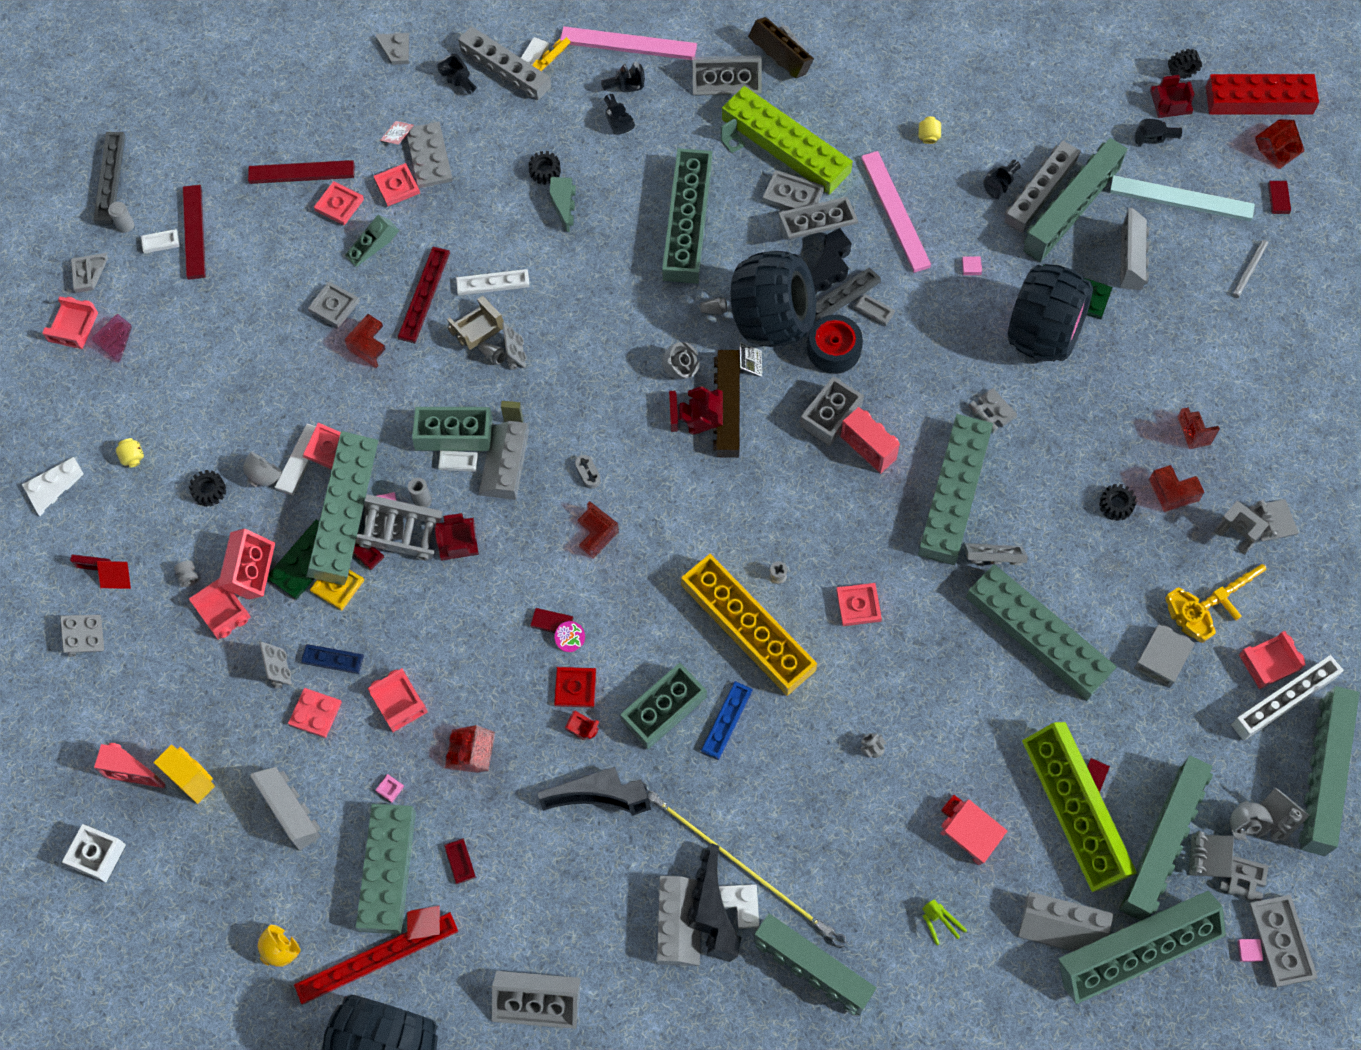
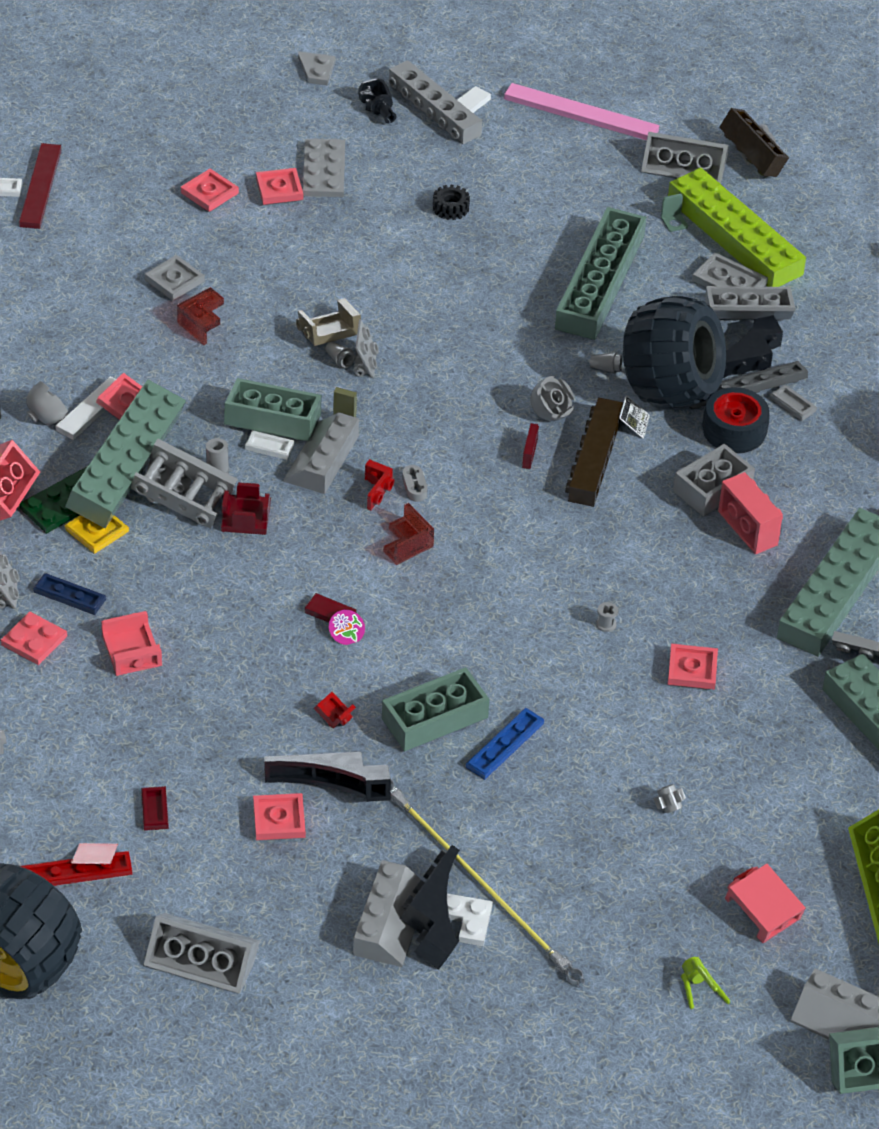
camera: 10 degrees right, 20 degrees down
(301, 172) = (176, 156): dark red tile -> none
(368, 556) = (139, 507): dark red tile -> none
(375, 237) = (238, 227): sand green slope -> none
(386, 869) = (68, 793): sand green brick -> none
(389, 788) = (96, 724): bright pink tile -> none
(397, 132) = (294, 141): sticker -> none
(423, 295) = (278, 290): dark red tile -> none
(470, 749) = (200, 704): clear red slope -> none
(492, 282) = (360, 293): white tile -> none
(549, 56) = (489, 105): yellow hinge -> none
(554, 473) = (382, 478): none -> red bracket
(561, 198) = (462, 233): sand green slope -> none
(563, 845) = (279, 816): none -> coral plate
(575, 687) = (338, 675): red tile -> none
(617, 116) = (548, 172): black piece -> none
(625, 79) = (568, 143): black piece -> none
(703, 411) = (565, 451): dark red panel -> none
(748, 624) = (557, 655): yellow brick -> none
(813, 964) = (537, 984): sand green brick -> none
(896, 212) = (845, 319): bright pink tile -> none

